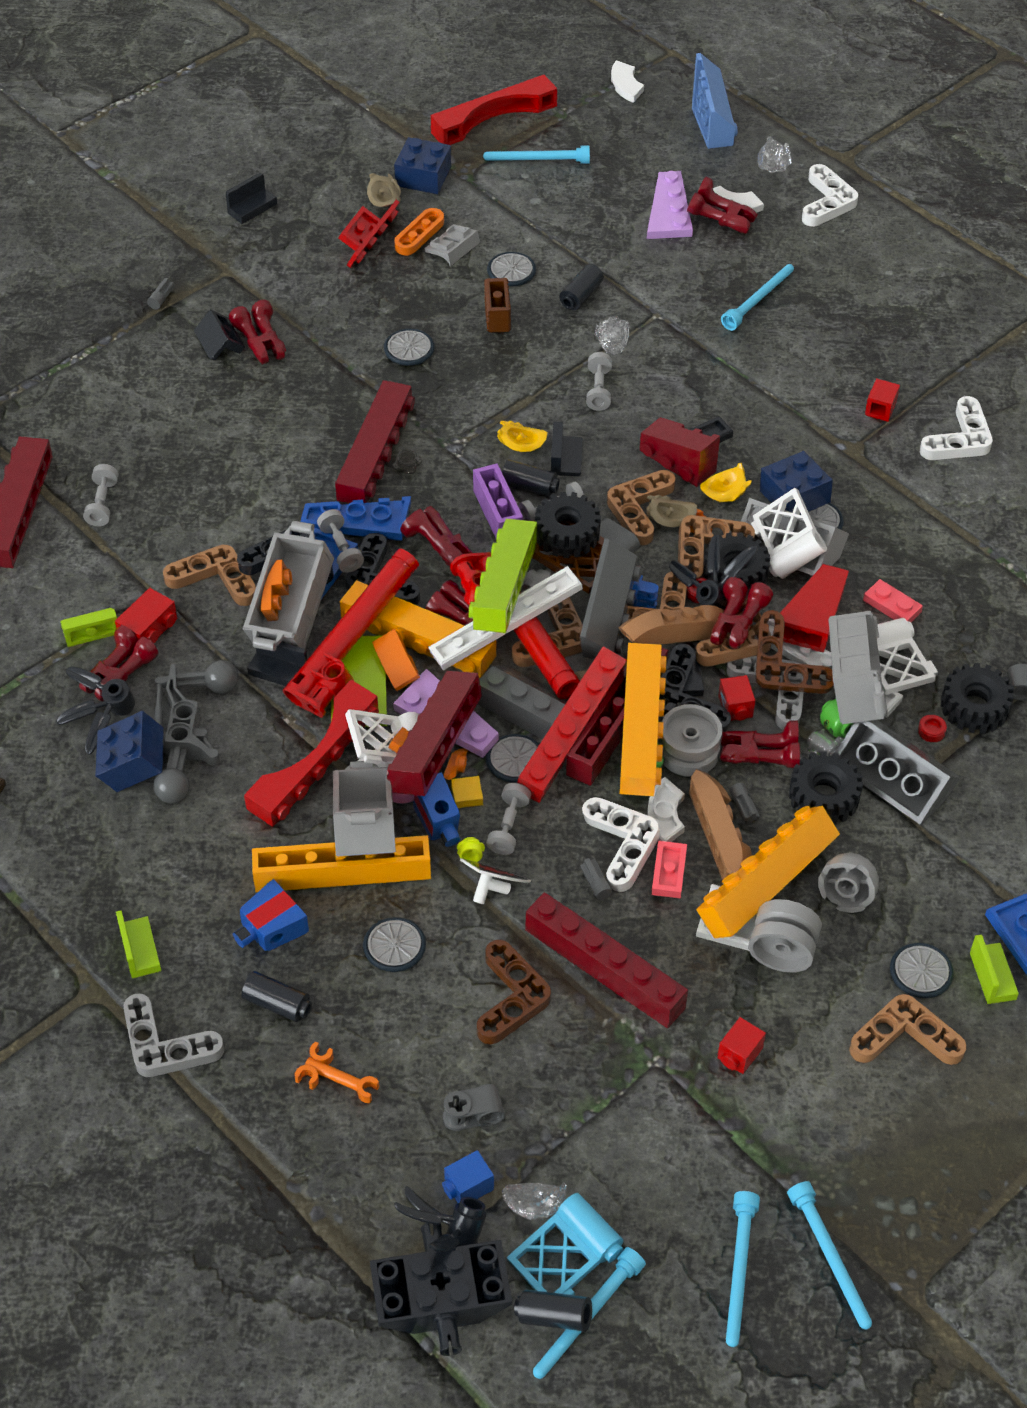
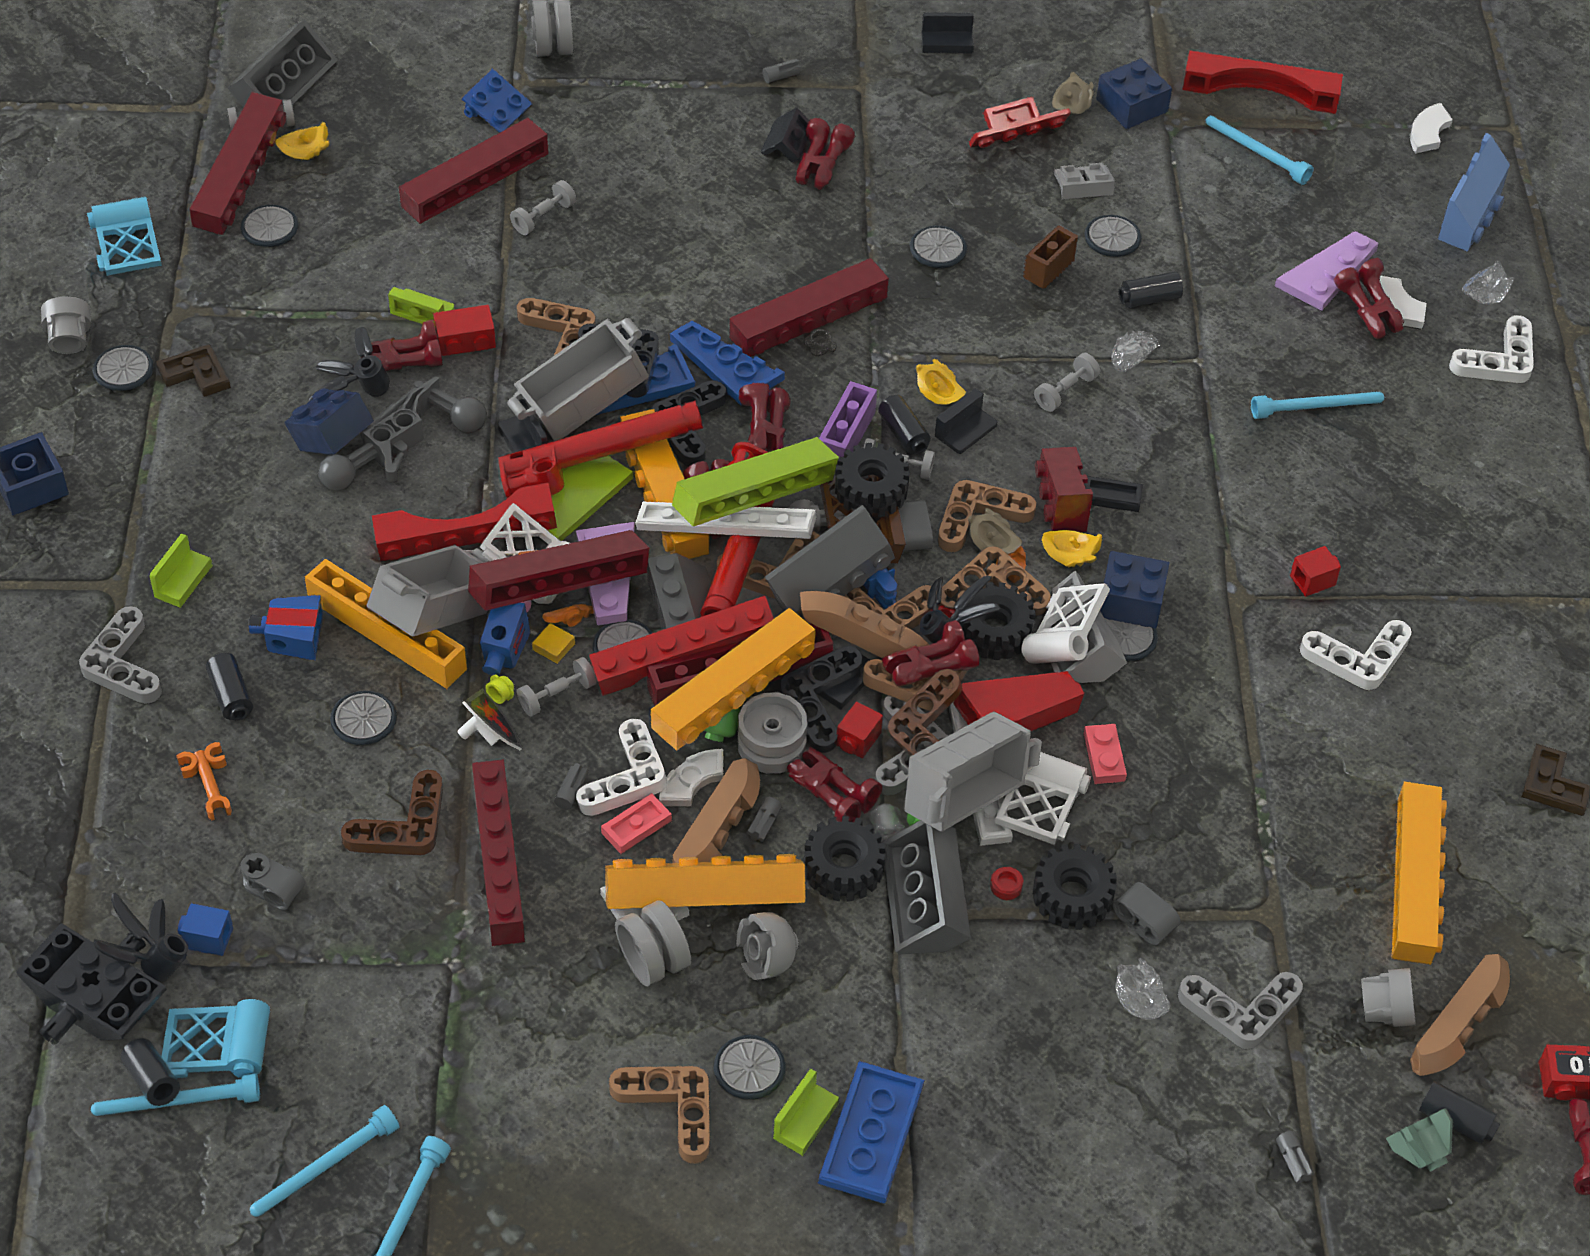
camera: 40 degrees right, 0 degrees up
(275, 586) = (577, 365): orange slope -> none
(331, 522) = (668, 388): light grey wheel -> none
(395, 659) = (612, 497): orange slope -> none
(419, 231) = (1064, 150): orange plate -> none
(534, 1199) = (232, 981): clear hat -> none
(741, 1045) = (522, 1001): red brick -> none

